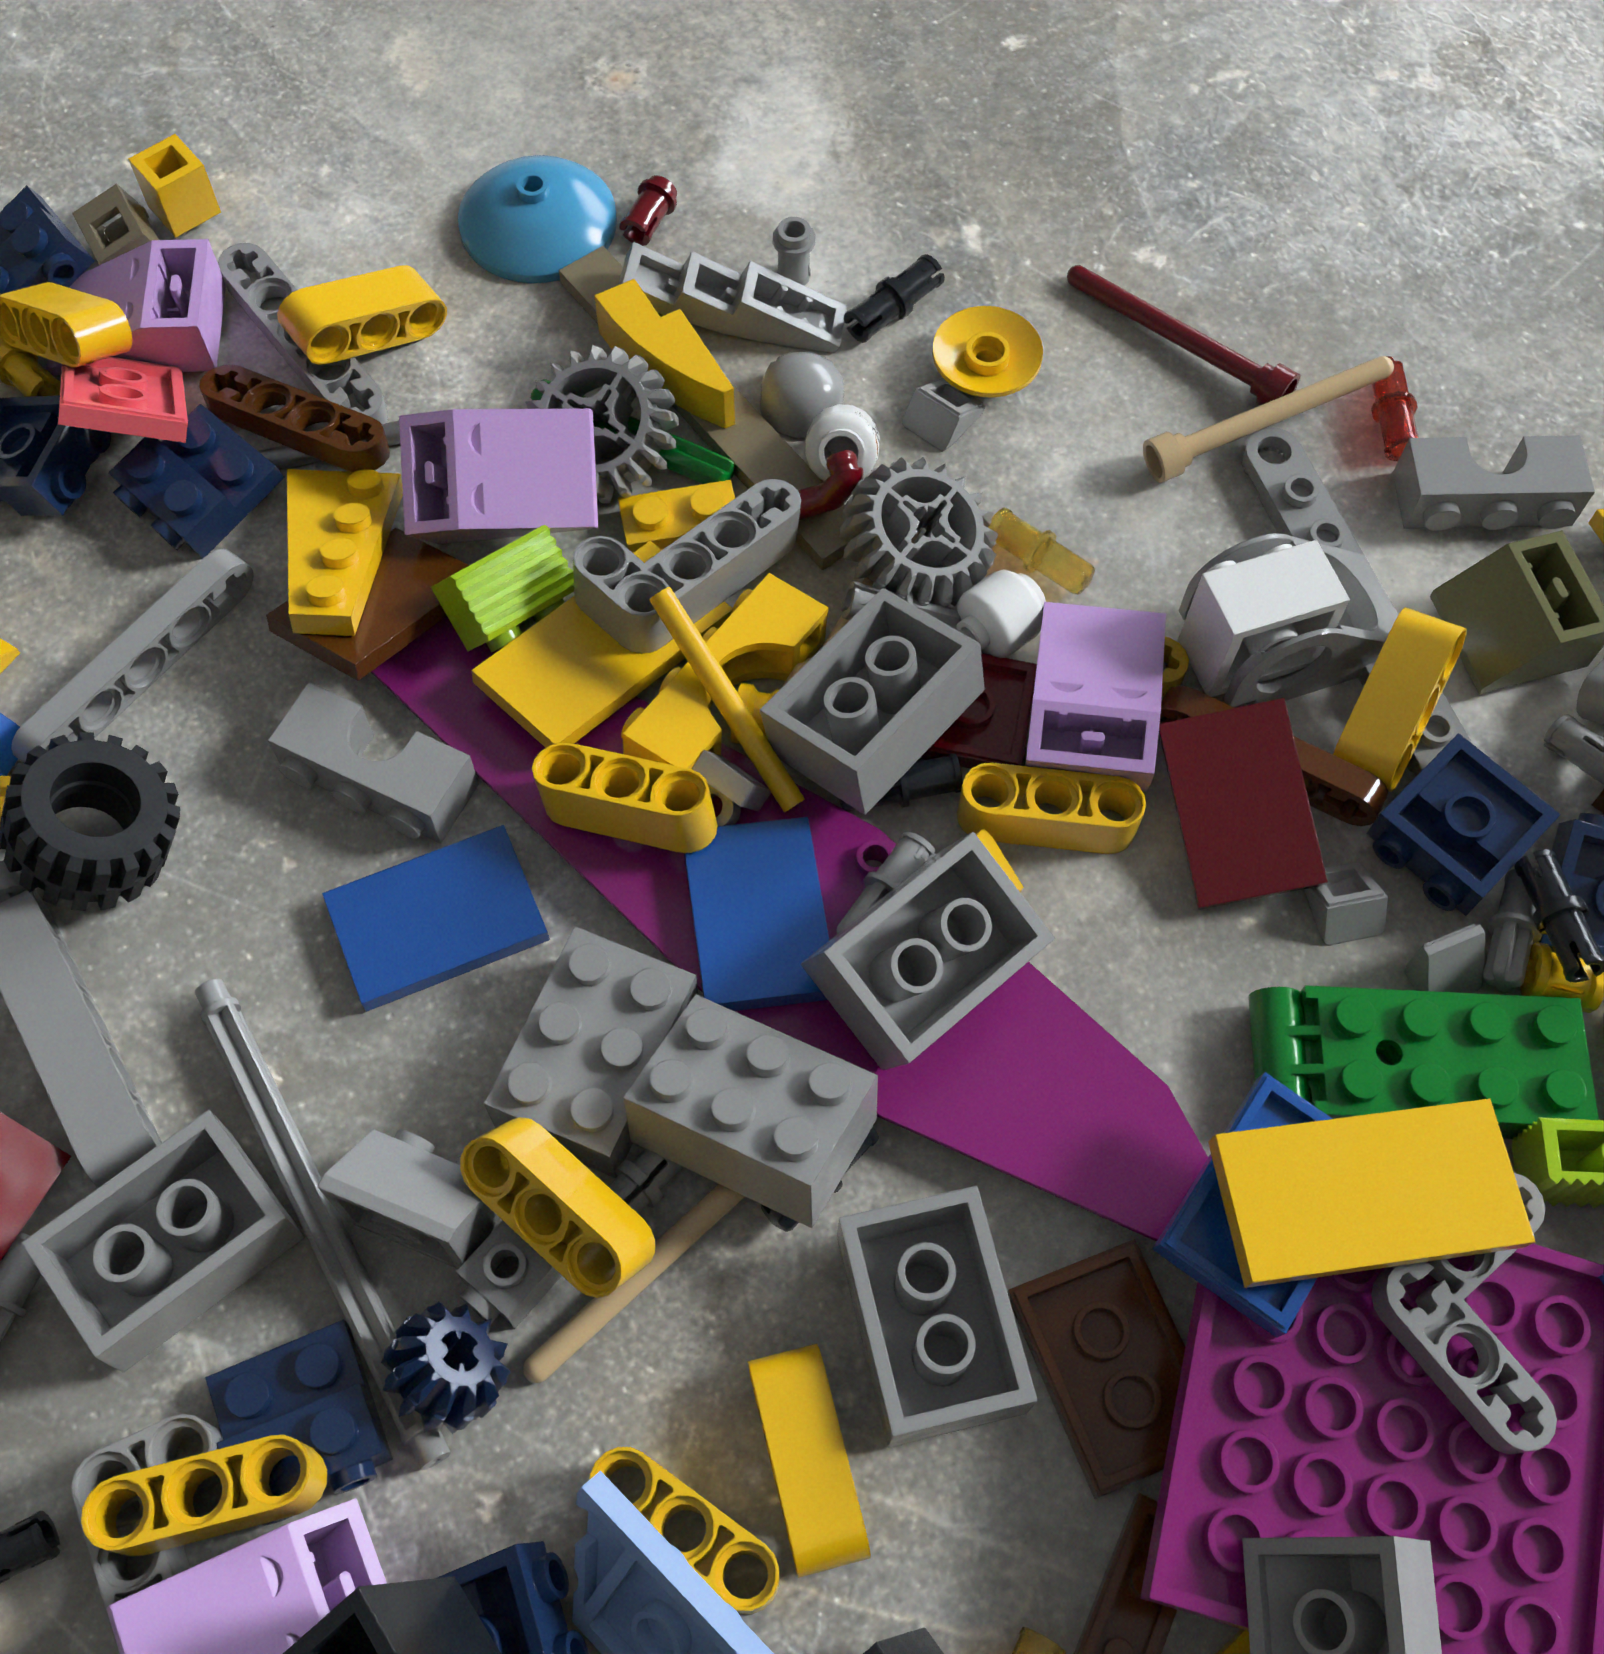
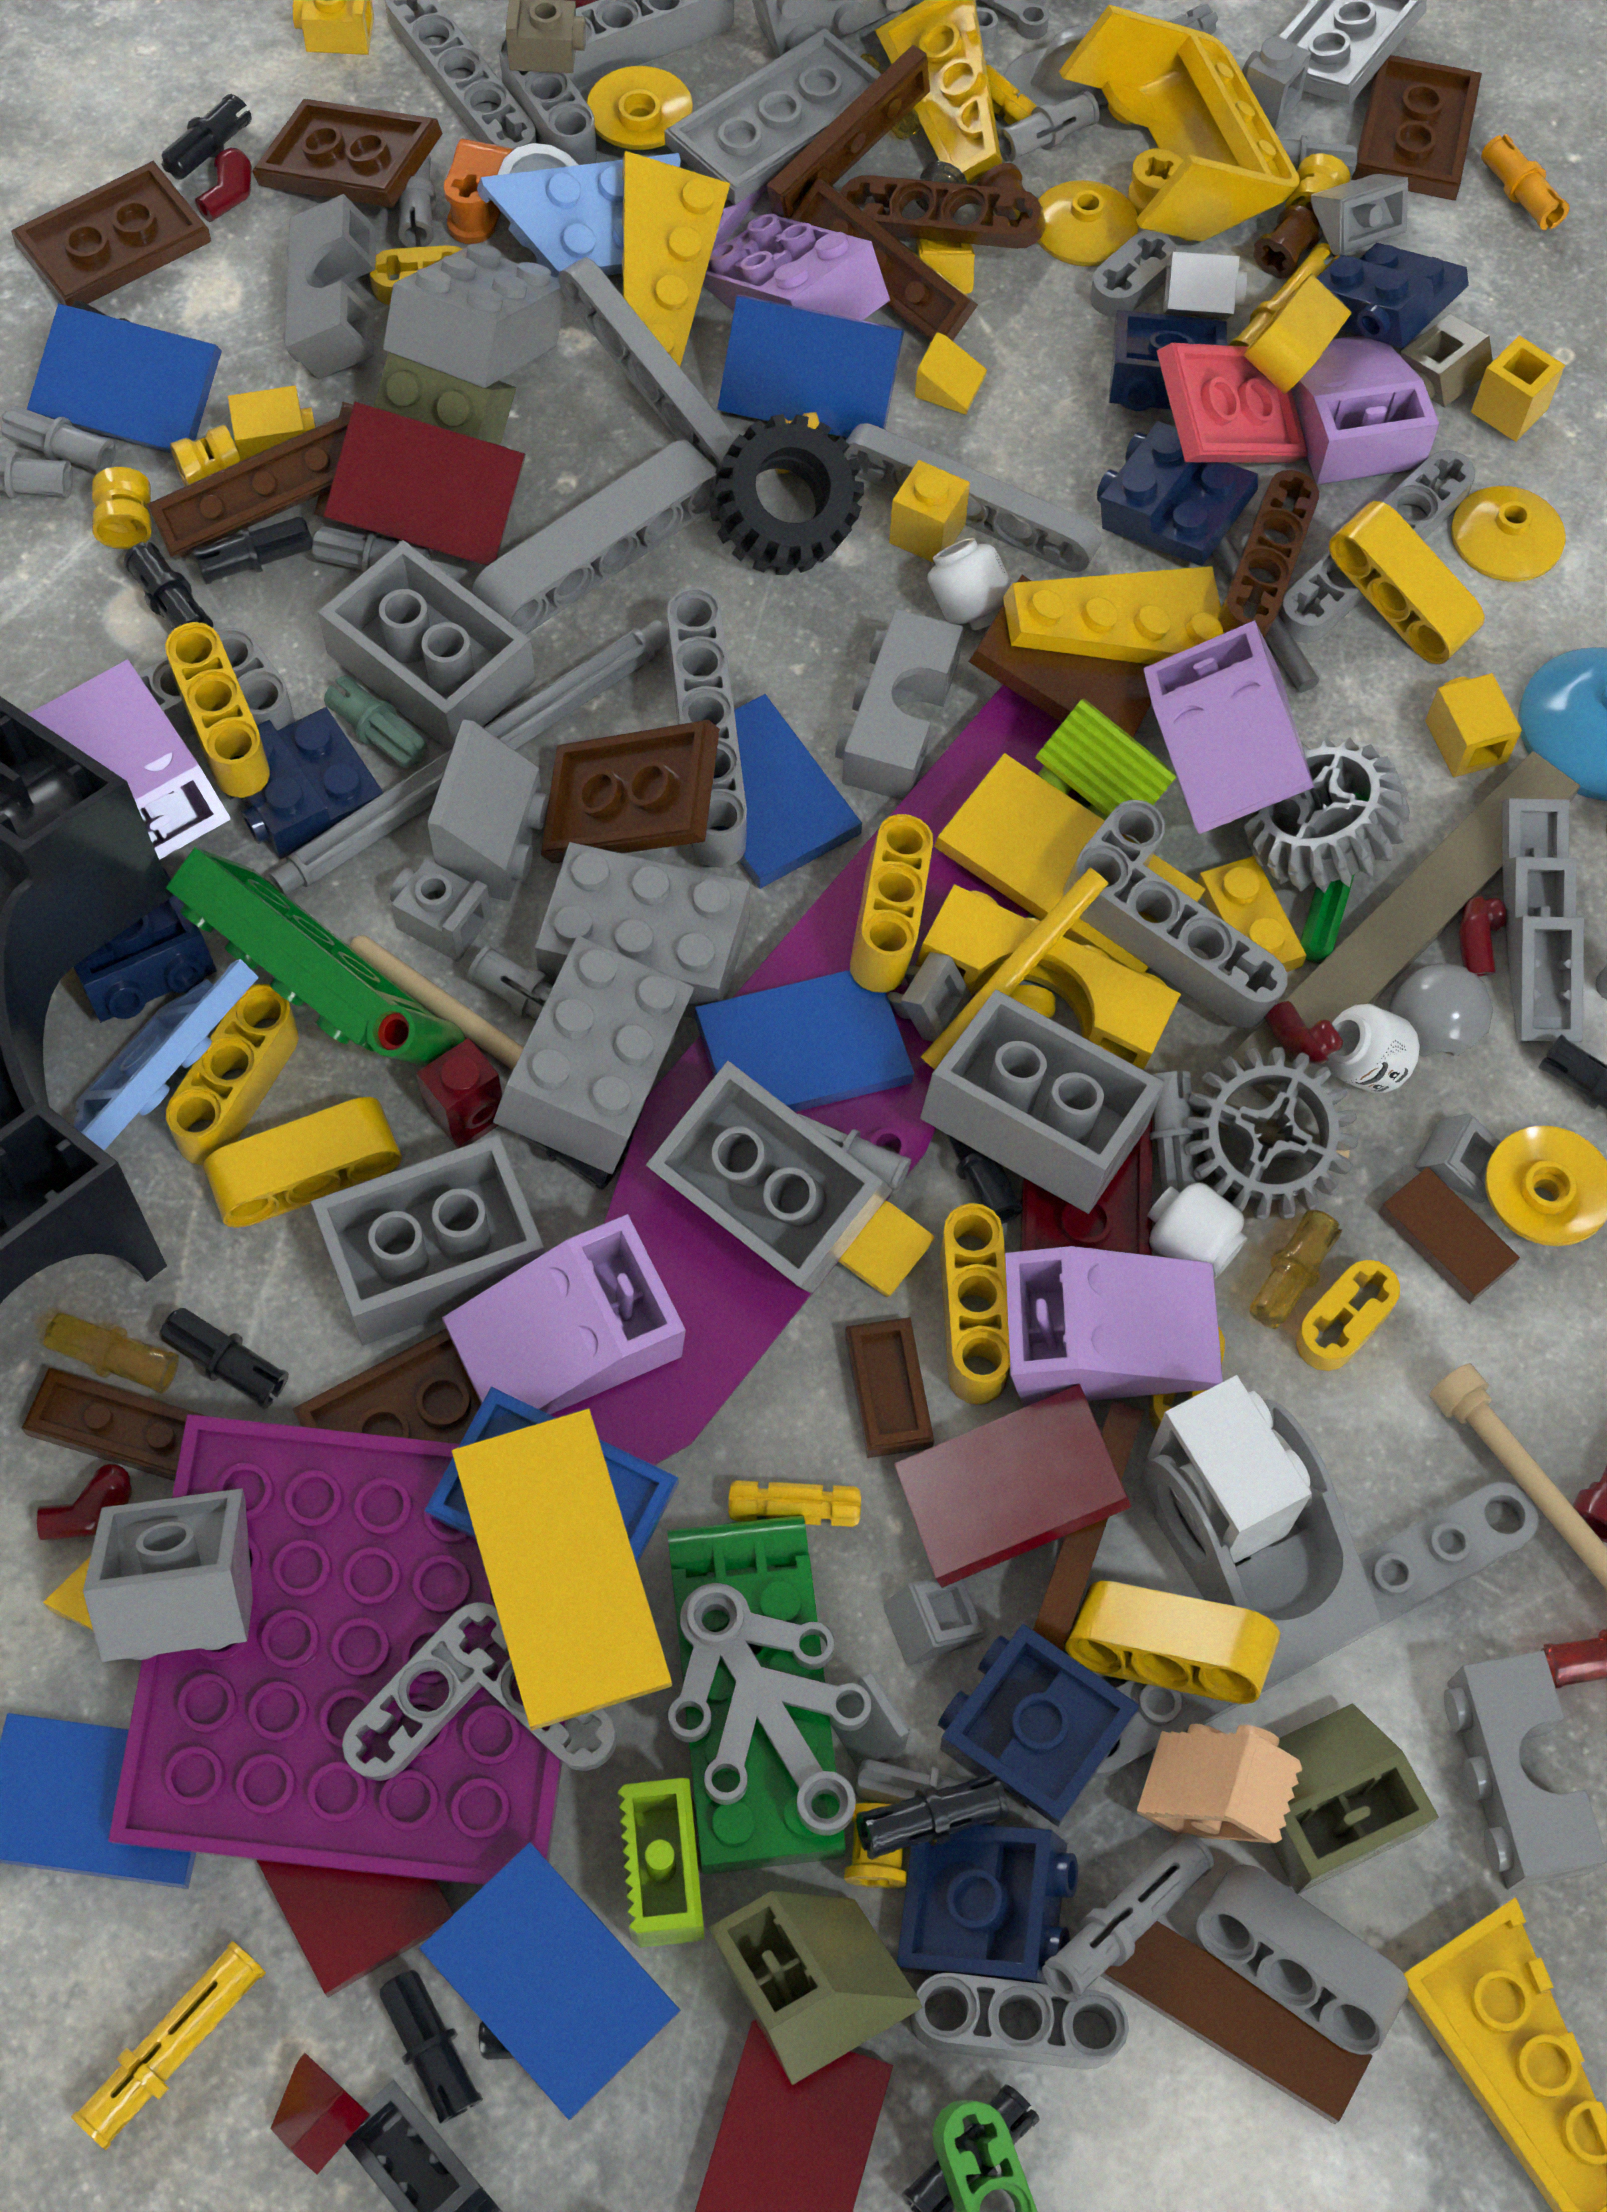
camera: 80 degrees right, 0 degrees up
(146, 696) = (928, 511): none -> yellow brick
(244, 1318) = (376, 722): none -> sand green axle
(249, 672) = (969, 583): none -> white head
(317, 242) = (1508, 533): none -> yellow dish
(335, 929) = (703, 652): none -> light grey beam
(429, 1034) = (632, 790): none -> reddish brown tile
(445, 1367) = (369, 866): dark blue gear -> none
(521, 304) = (1472, 724): none -> yellow brick
(522, 1179) = (482, 913): yellow beam -> none
(576, 1416) = (308, 961): none -> green hinge
(668, 346) = (1440, 855): yellow slope -> none
(736, 351) = (1475, 934): none -> dark red arm
(756, 1265) = (461, 1093): none -> dark red brick
(1015, 437) = (1448, 1235): none -> reddish brown tile
(1031, 1572) = (223, 1356): none -> black axle
(1063, 1177) = (570, 1322): none -> lavender slope
(1088, 520) = (1337, 1305): none -> yellow beam
(1117, 903) = (889, 1387): none -> reddish brown tile
(1231, 1003) = (795, 1499): none -> yellow axle
(1463, 1041) = (762, 1696): none -> light grey plant
(1530, 686) = (1220, 1784): none -> light nougat brick

